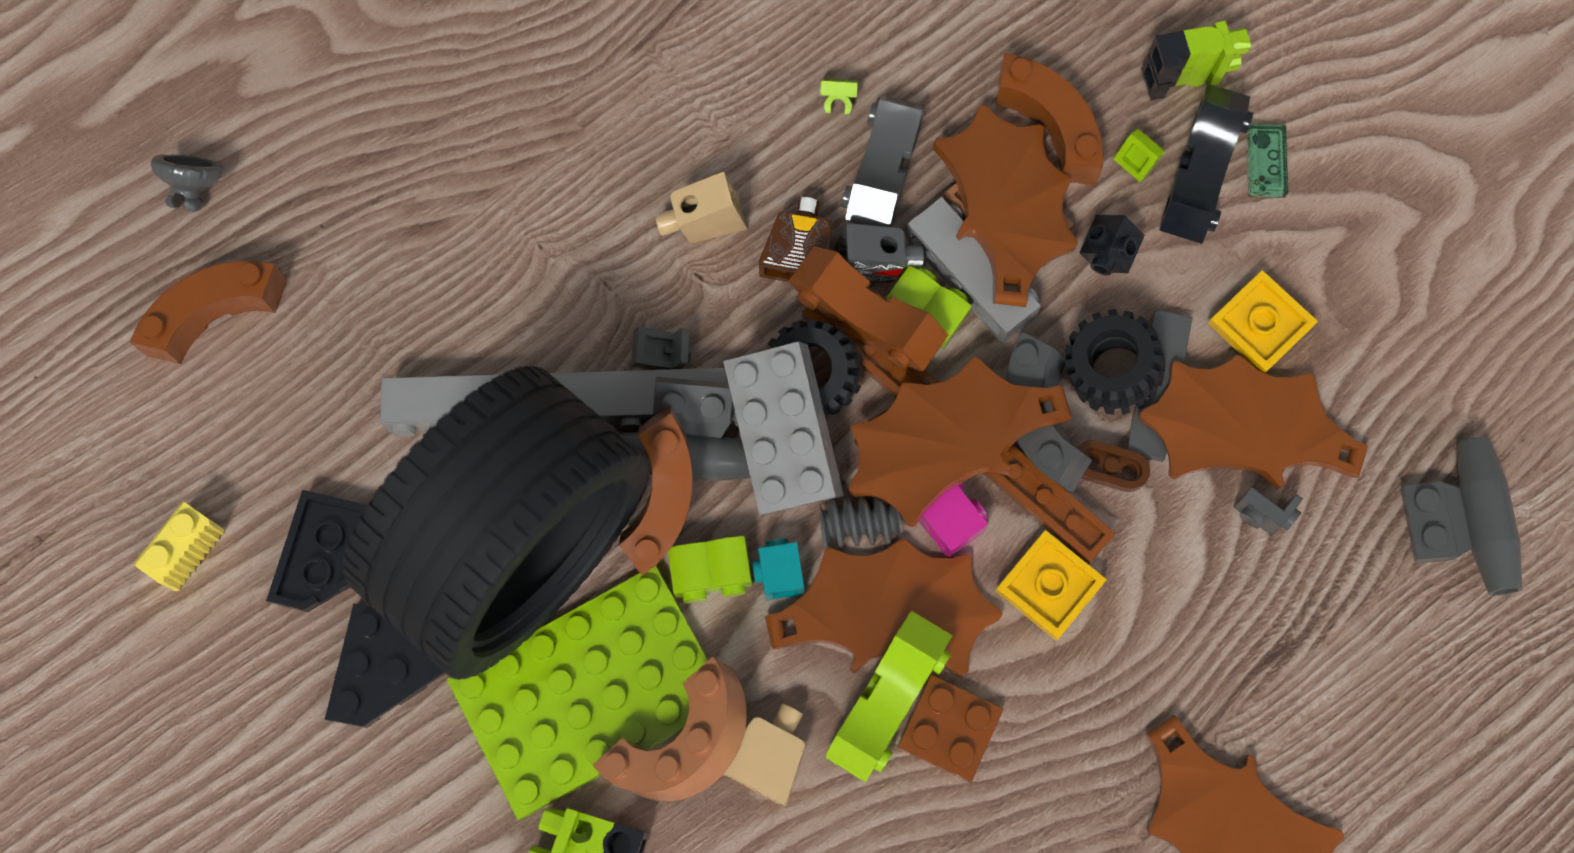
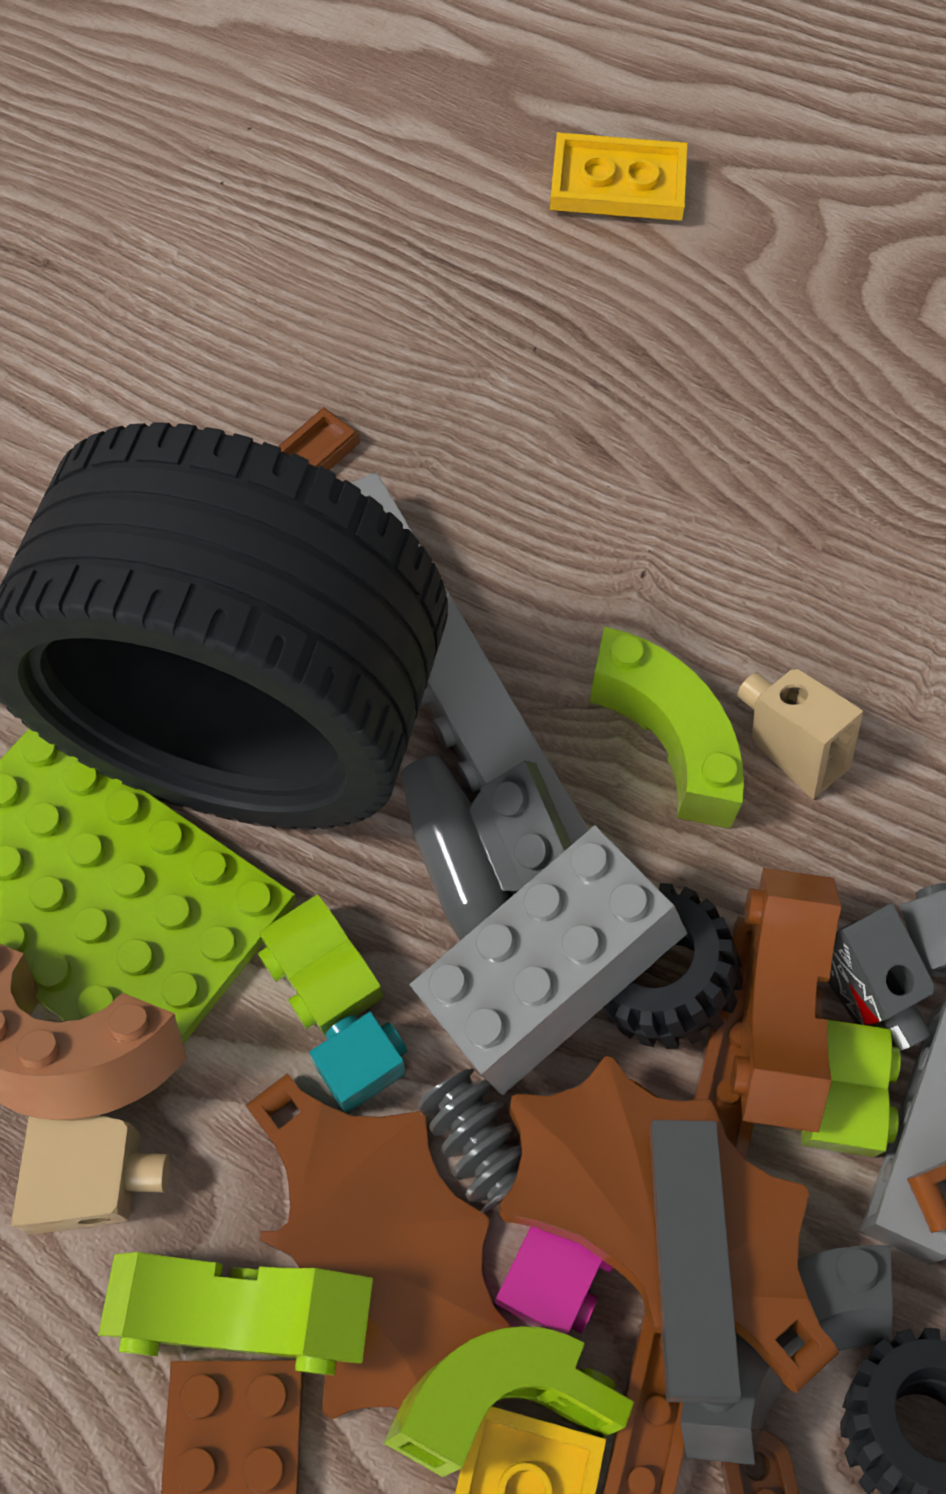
camera: 60 degrees right, 10 degrees down
(179, 547) = (83, 377): light yellow brick -> none
(186, 177) = (509, 196): dark grey hair -> none
(202, 297) = (367, 263): dark orange brick -> none
(207, 93) = (619, 176): none -> yellow plate
(327, 419) = (322, 440): none -> dark orange tile
(660, 275) = (683, 714): none -> lime brick
(660, 349) = (586, 764): dark grey bracket -> none
(667, 506) = (394, 853): dark orange brick -> none
(793, 239) = (838, 851): reddish brown torso -> none
(983, 433) = (693, 1264): none -> dark grey tile
(991, 595) = (522, 1362): none -> lime arch

